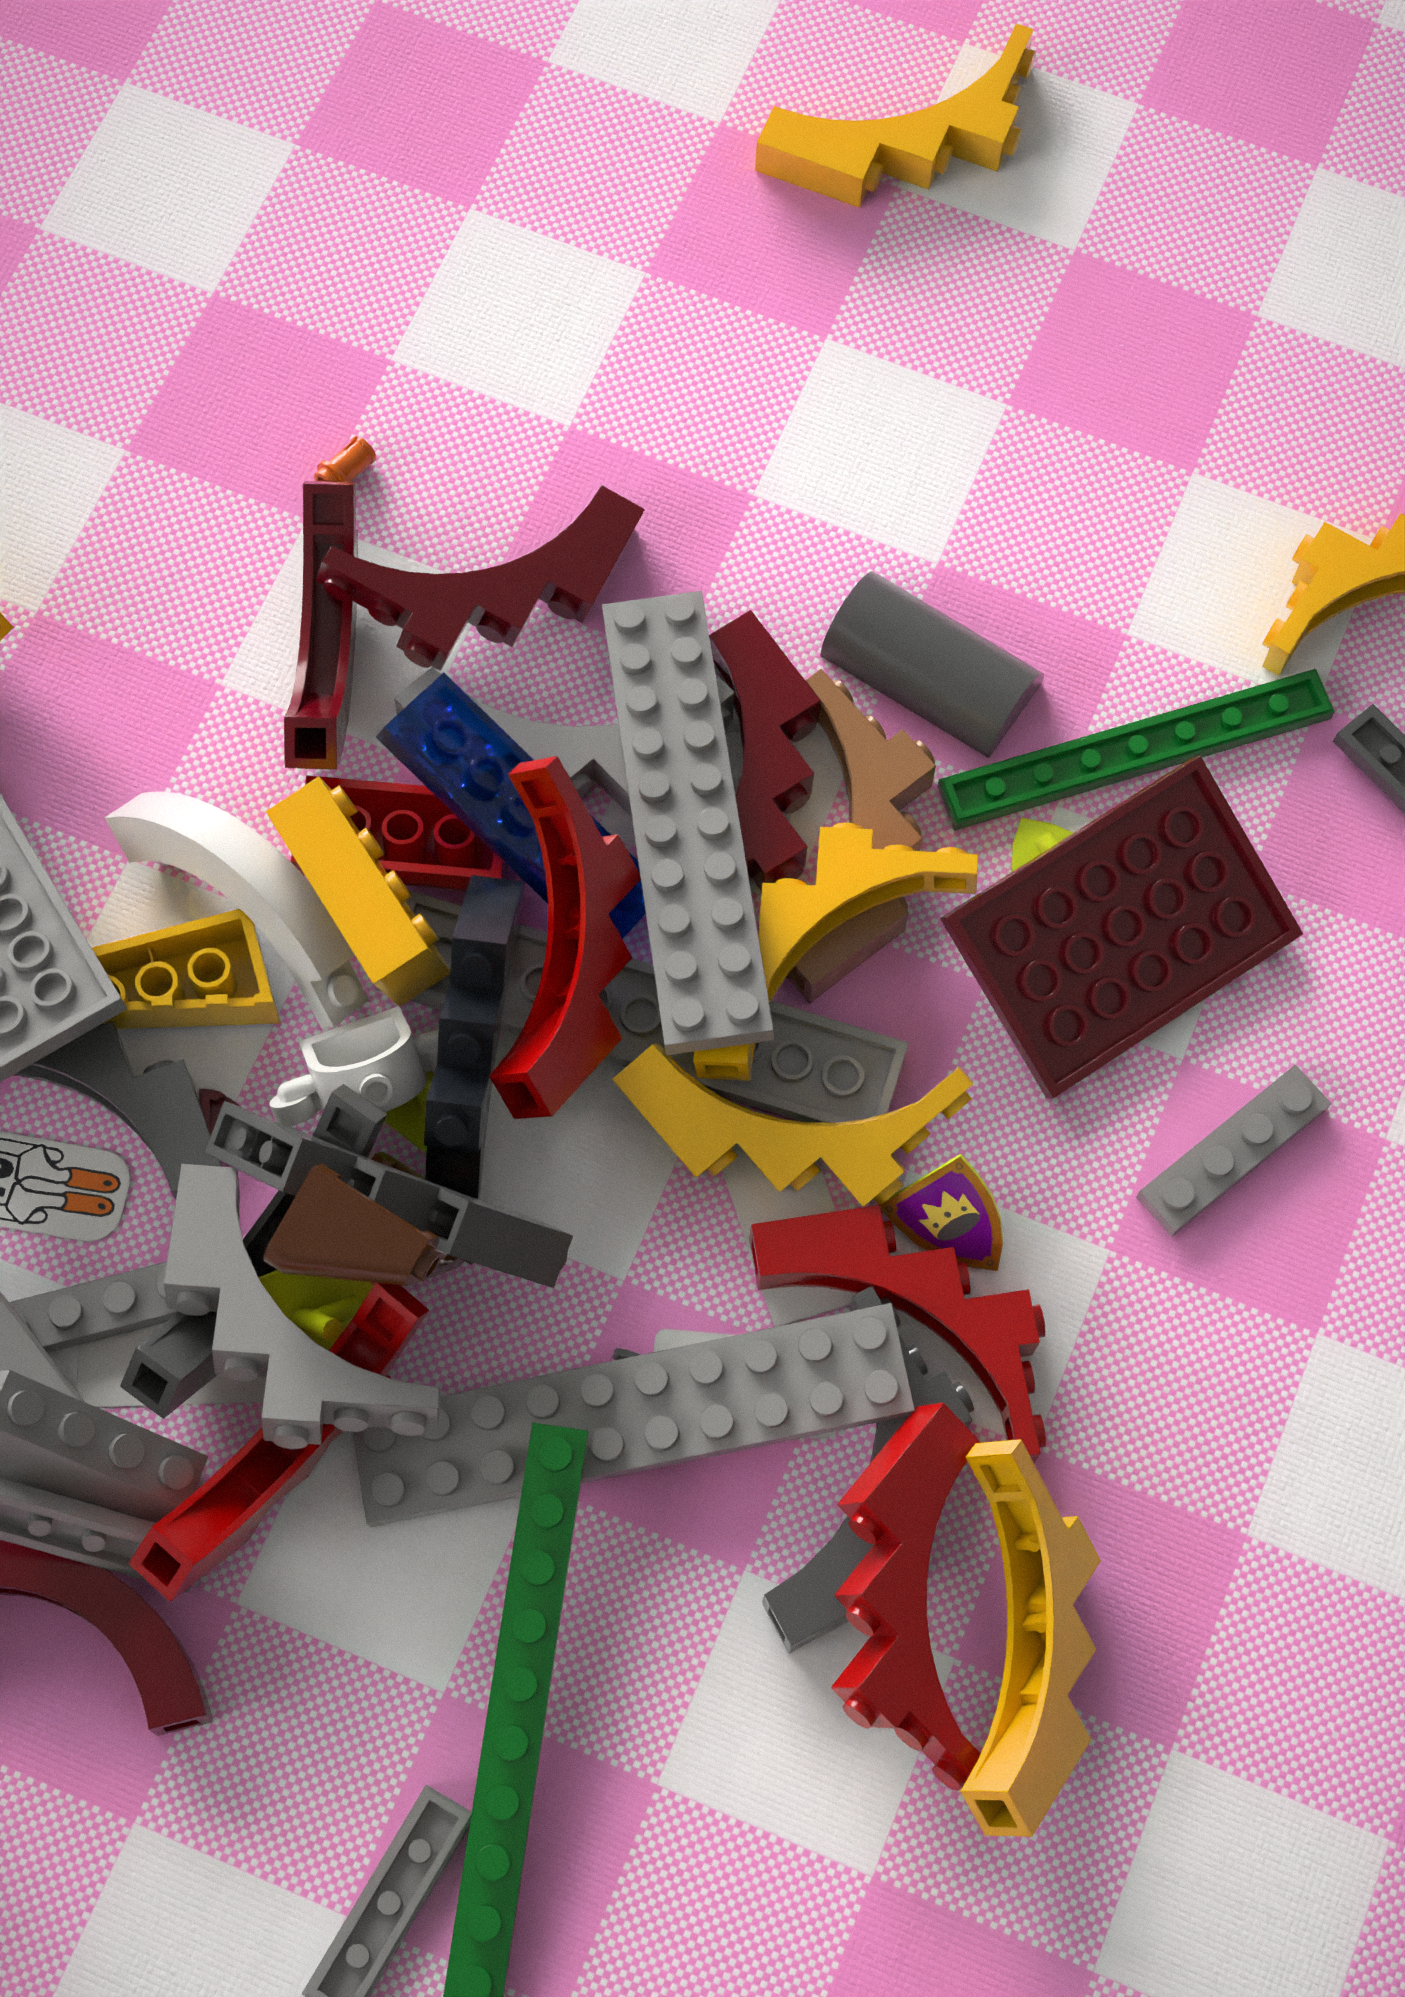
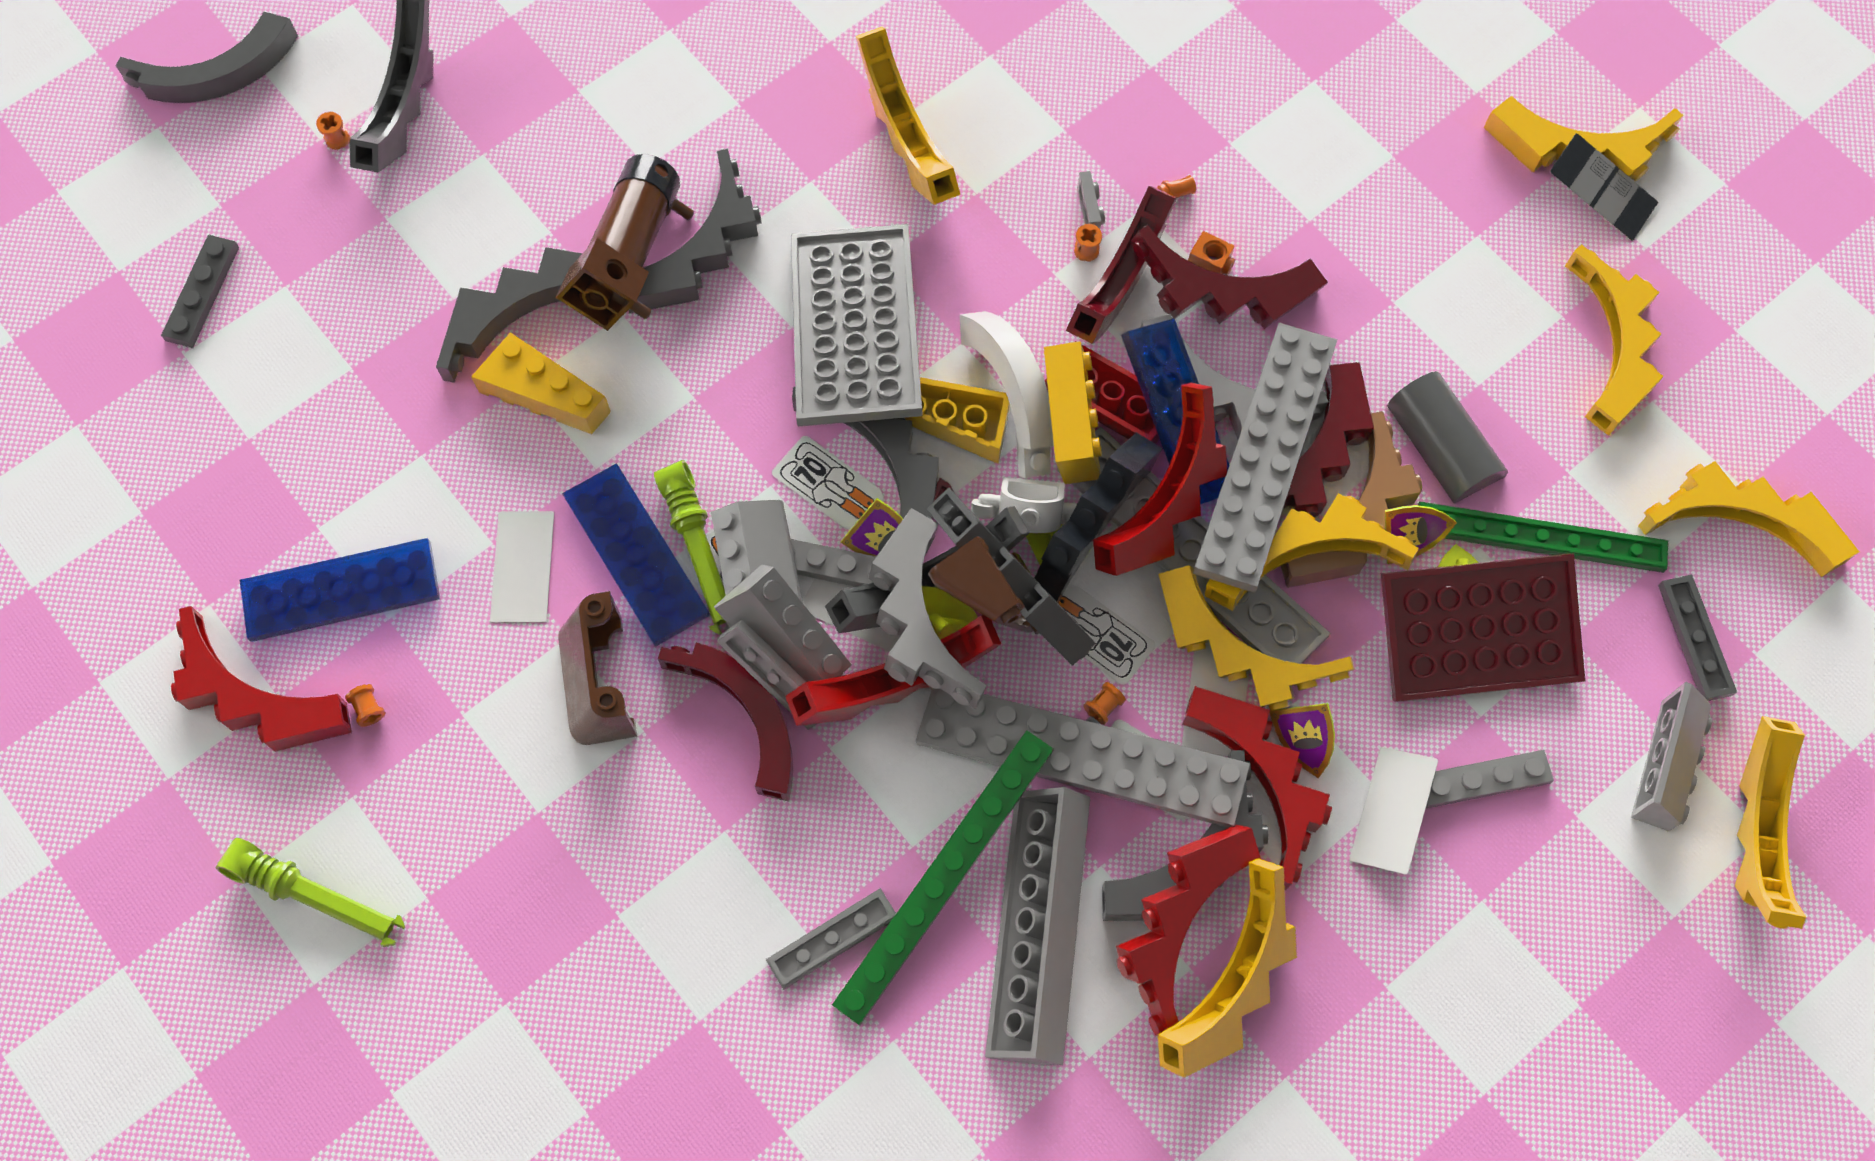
camera: 30 degrees right, 0 degrees up
(136, 1224) = (872, 529): none -> shield
(213, 536) = (1088, 195): none -> light grey plate
(249, 611) = (1087, 242): none -> orange bush
(442, 531) = (1210, 245): none -> orange brick
(603, 1212) = (1118, 646): none -> sticker
(627, 1317) = (1104, 703): none -> orange bush
(699, 1718) = (1038, 928): none -> light grey slope
(957, 818) = (1419, 524): none -> shield
(972, 184) = (1604, 186): none -> sticker
(1083, 347) = (1631, 335): none -> yellow arch
(1129, 1264) = (1393, 810): none -> white sticker

